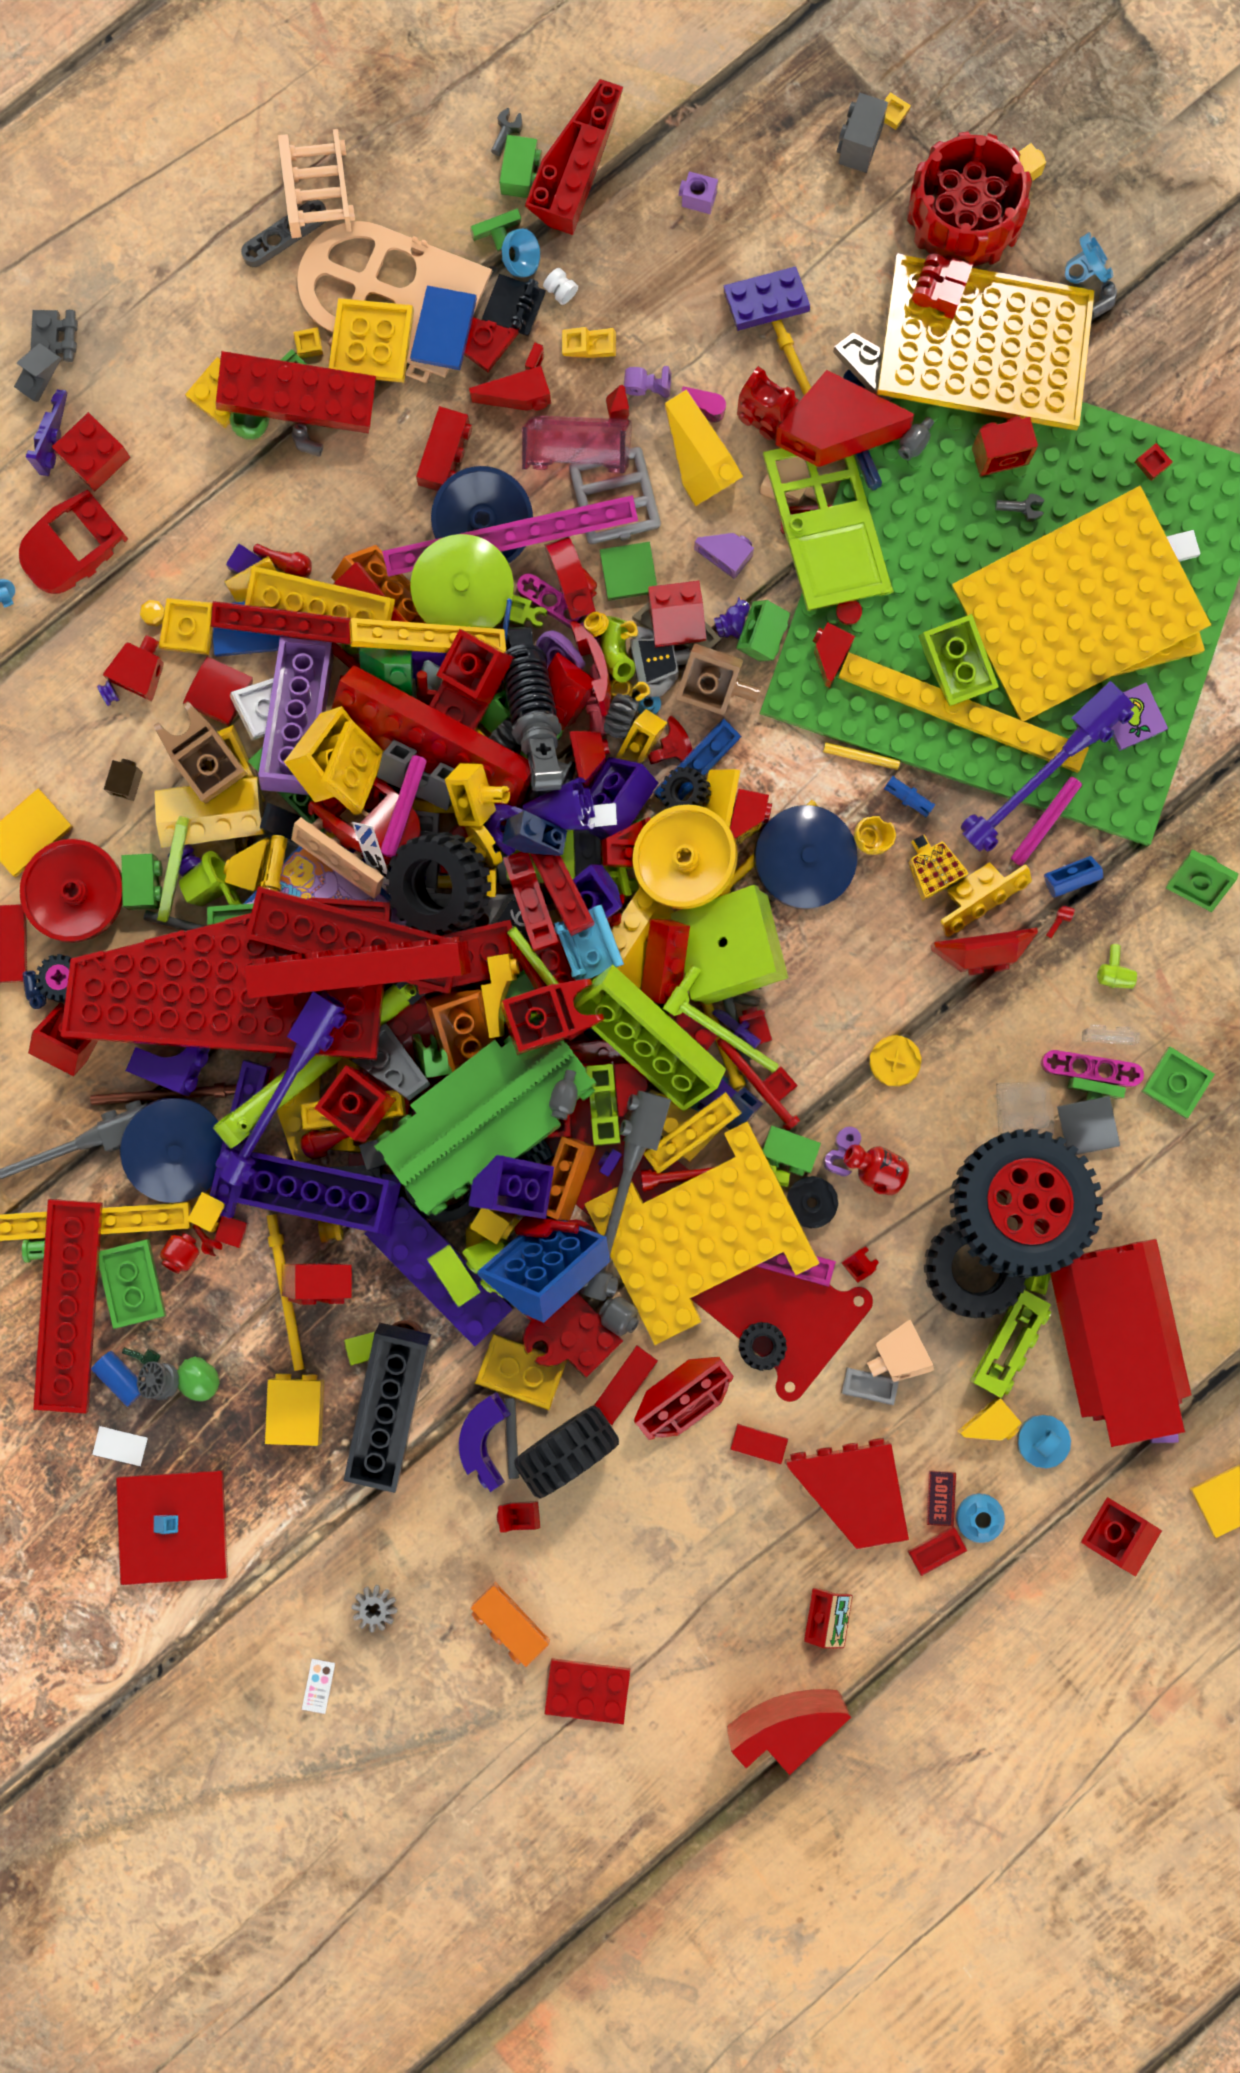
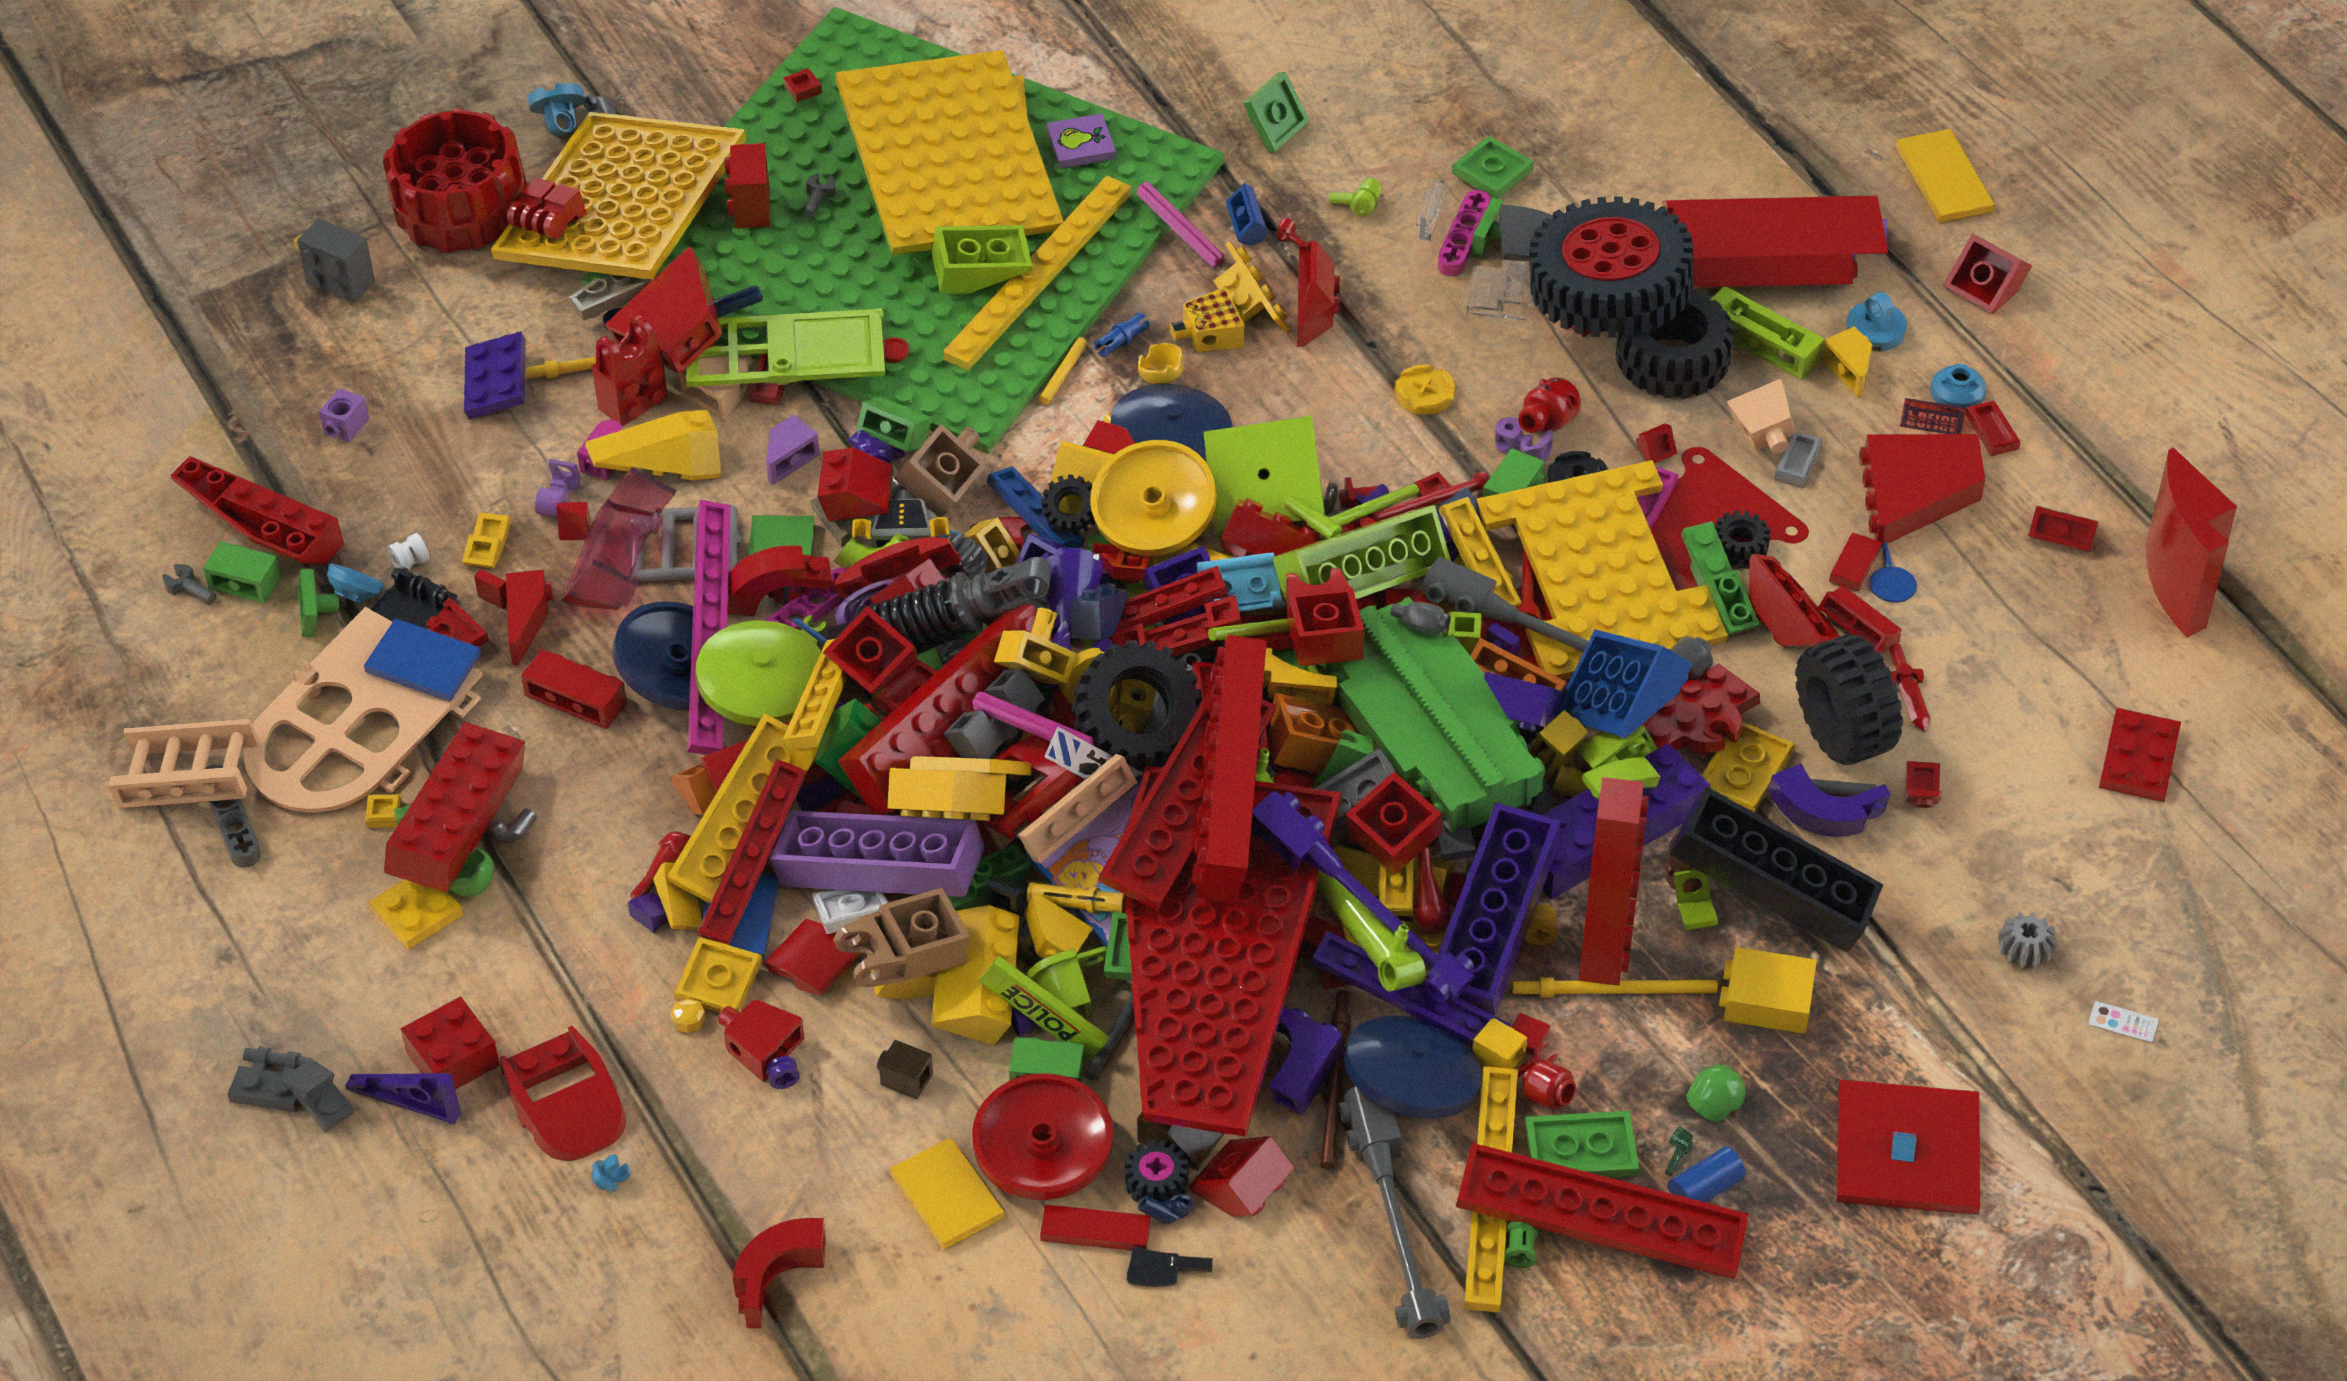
camera: 85 degrees left, 35 degrees down
(120, 1446) = (1795, 1195): white sticker -> none
(160, 1380) = (1714, 1123): dark grey wheel -> none
(372, 338) = (408, 730): yellow plate -> none
(509, 1625) = (2054, 810): orange brick -> none
(543, 1227) = (1573, 692): red piece -> none
(596, 623) = (842, 558): yellow plate -> none
(625, 1383) = (1765, 669): red tile -> none
(626, 1498) = (1909, 688): none -> red sword
(689, 1452) = (1860, 618): none -> red piece
(709, 1333) = (1713, 569): none -> bright green slope
(745, 1477) = (1891, 582): none -> blue piece
(831, 650) = (940, 363): red slope -> none
(915, 439) = (716, 265): dark grey plant -> none
(1093, 723) = (1087, 159): dark purple bar -> none

